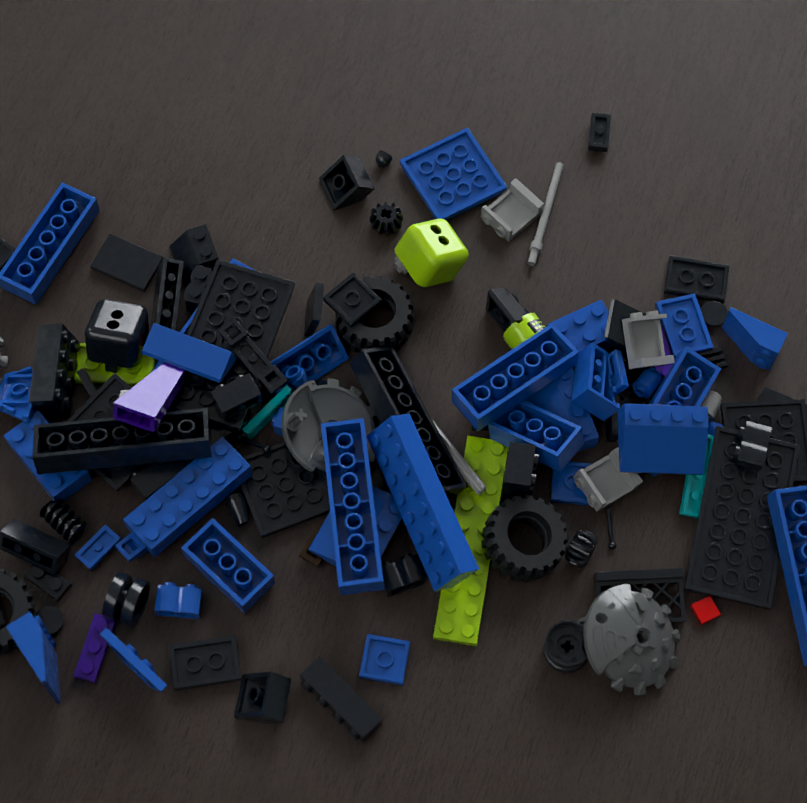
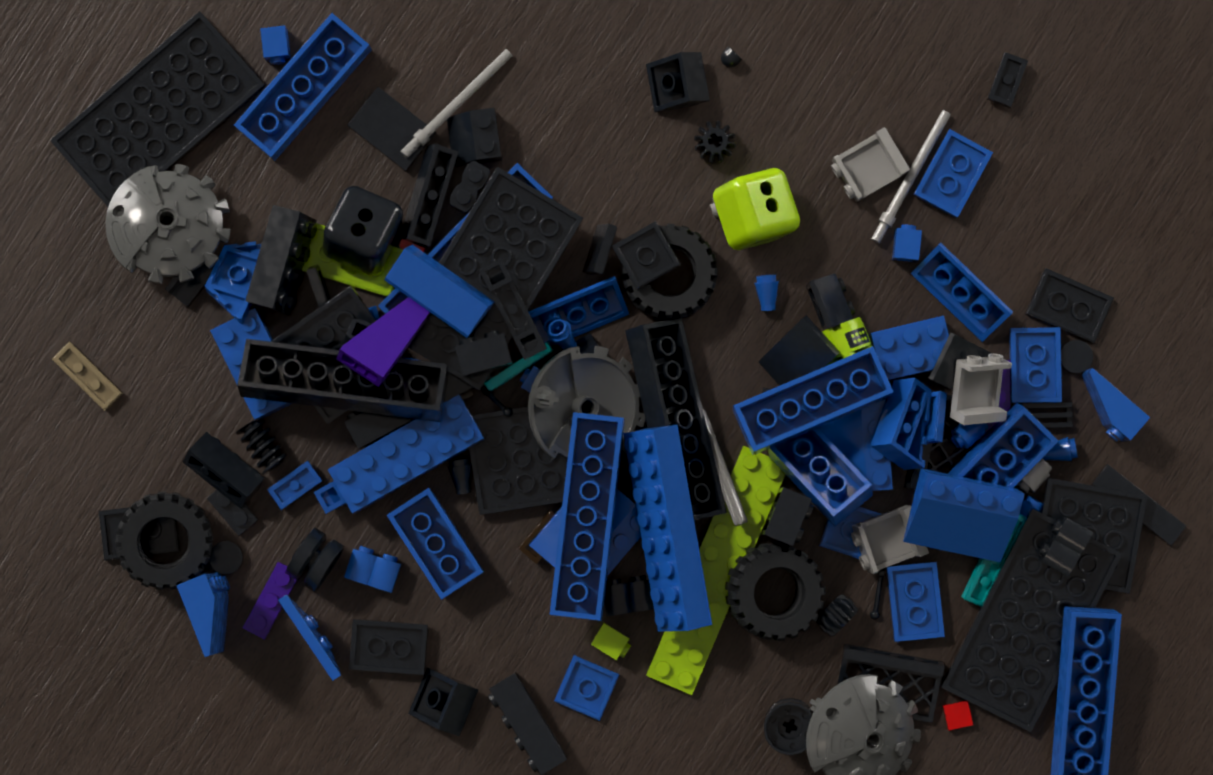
camera: 20 degrees right, 20 degrees up
(20, 218) = (275, 44): none -> blue brick
(153, 259) = (422, 136): none -> light grey bar
(396, 614) = (611, 642): none -> lime brick
(453, 175) = (810, 100): blue plate -> none
(455, 315) = (767, 291): none -> blue cone
(493, 343) = (798, 353): none -> black tile
(556, 260) = (906, 243): none -> blue brick
(577, 204) = (953, 173): none -> blue plate
(609, 281) = (961, 292): none -> blue slope
(642, 526) = (915, 601): none -> blue plate
(725, 383) = (1062, 451): none -> blue cone

